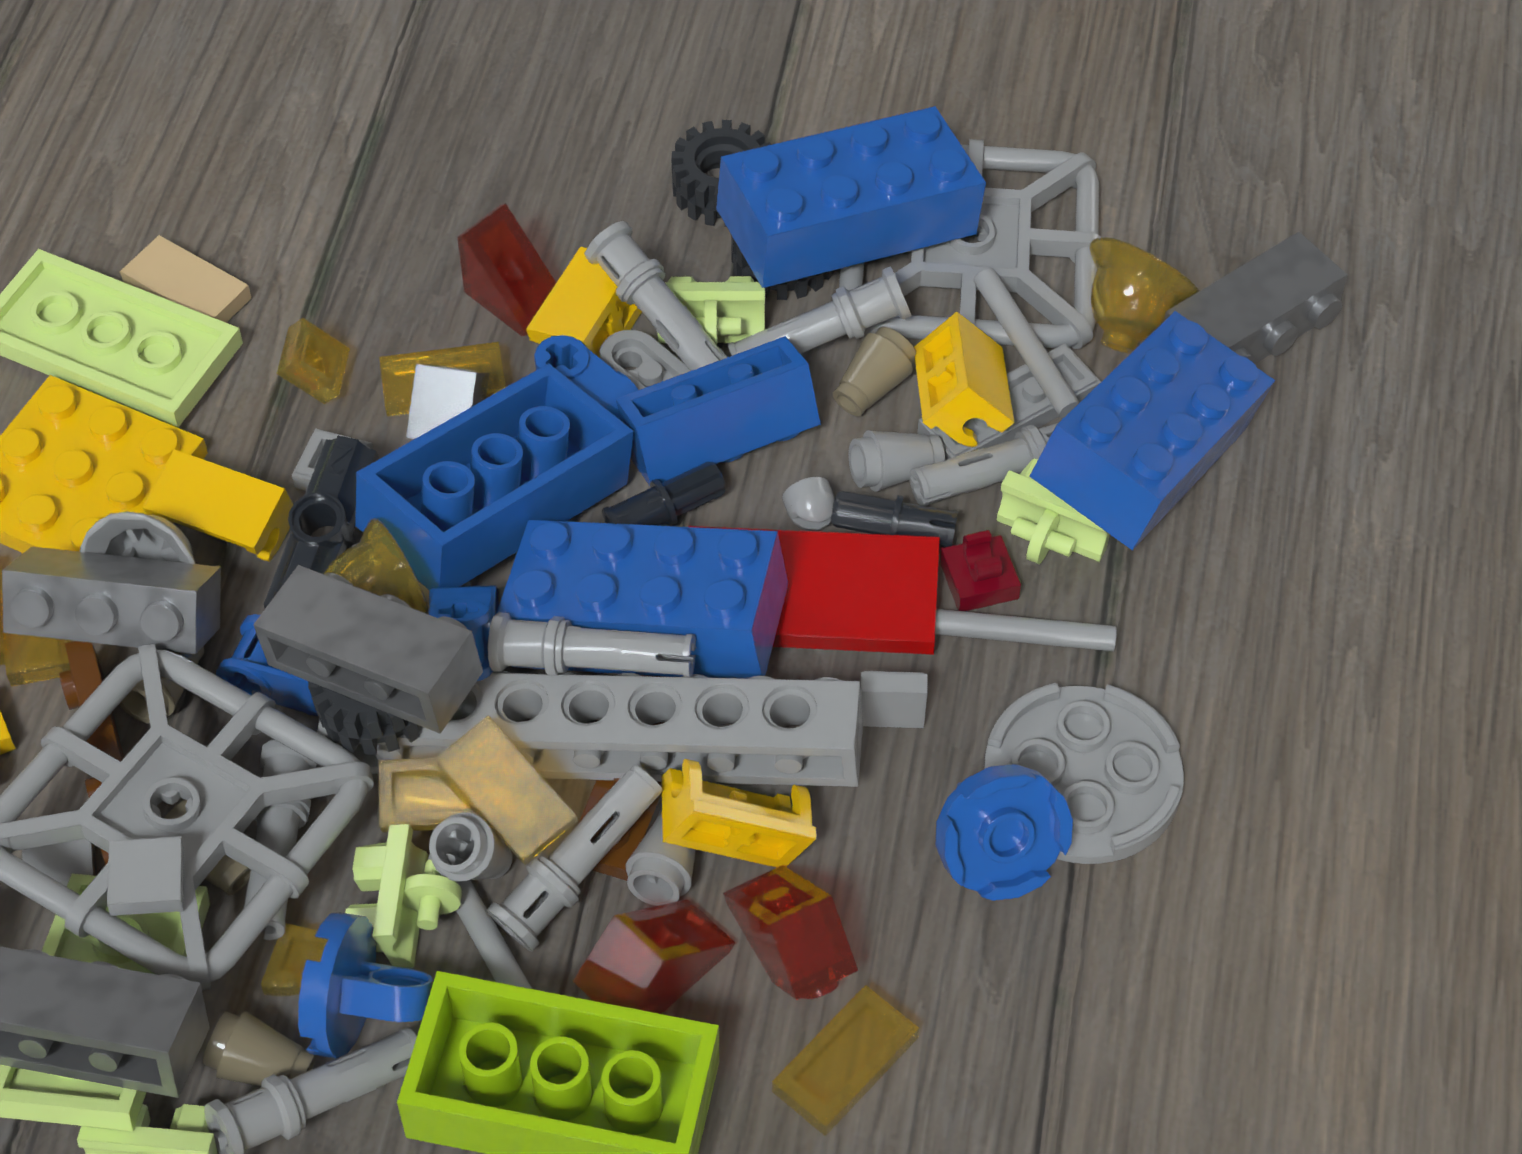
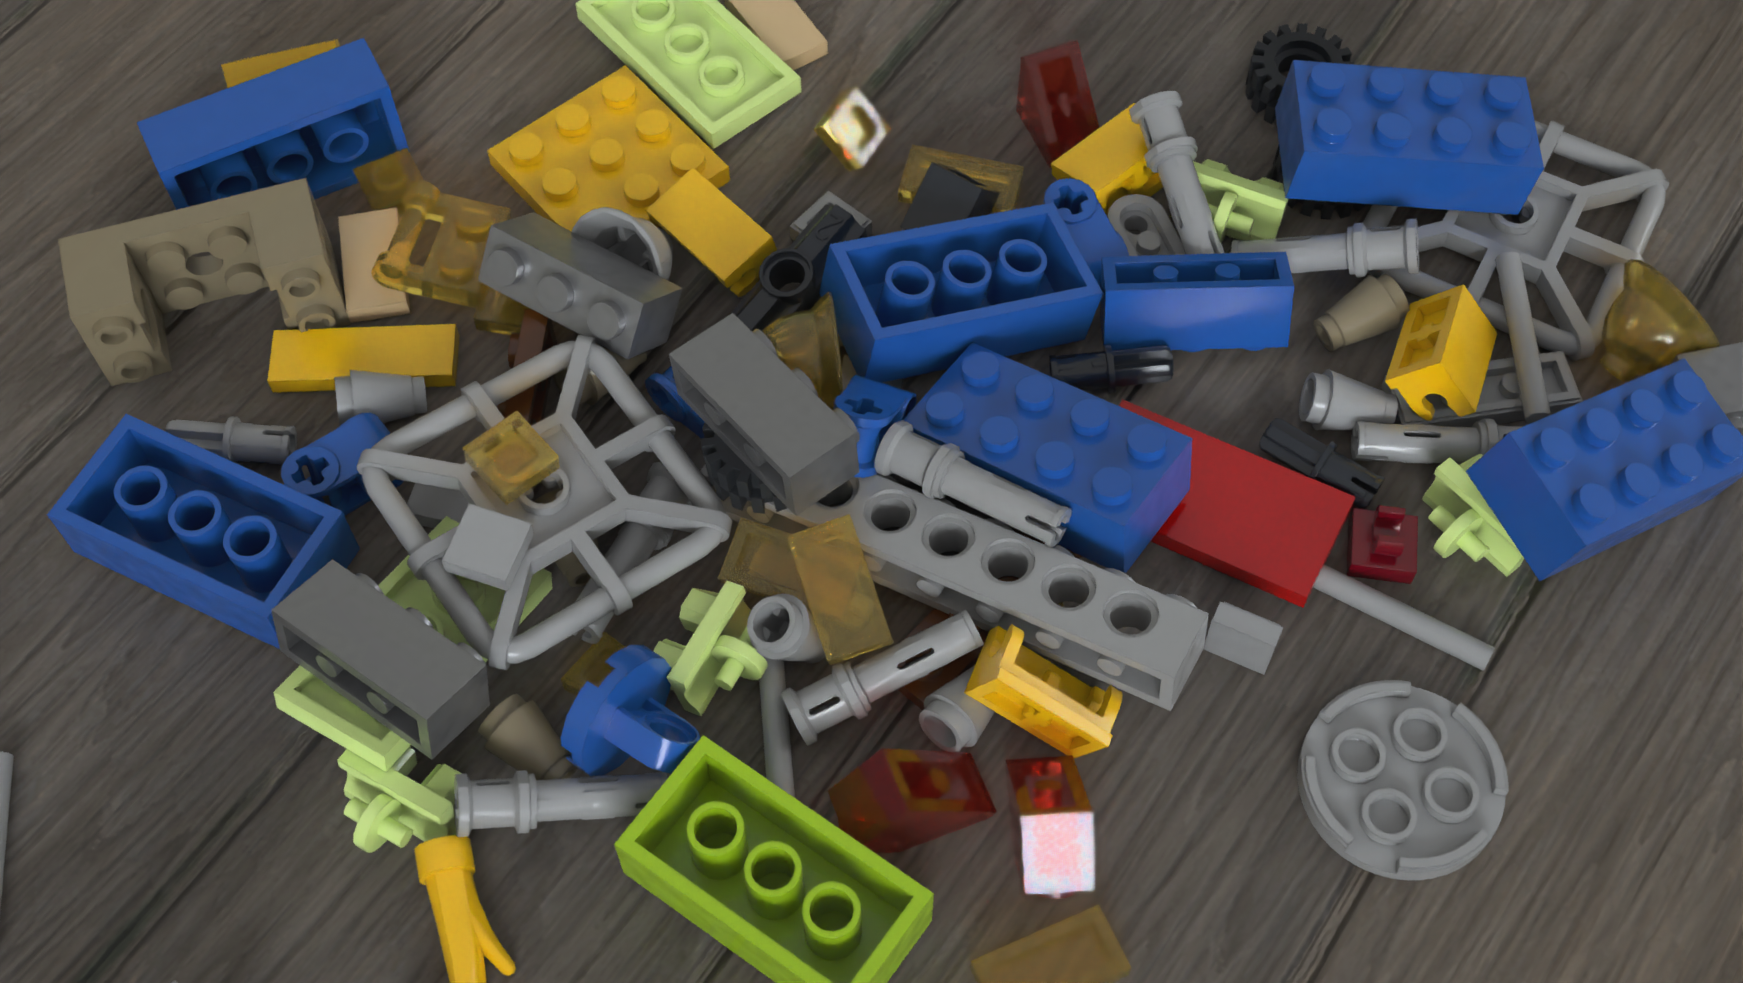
camera: 25 degrees right, 5 degrees up
(131, 782) = (511, 457): none -> clear yellow plate
(809, 503) = (1245, 419): light grey hinge -> none
(1003, 831) = (1291, 811): blue tile -> none

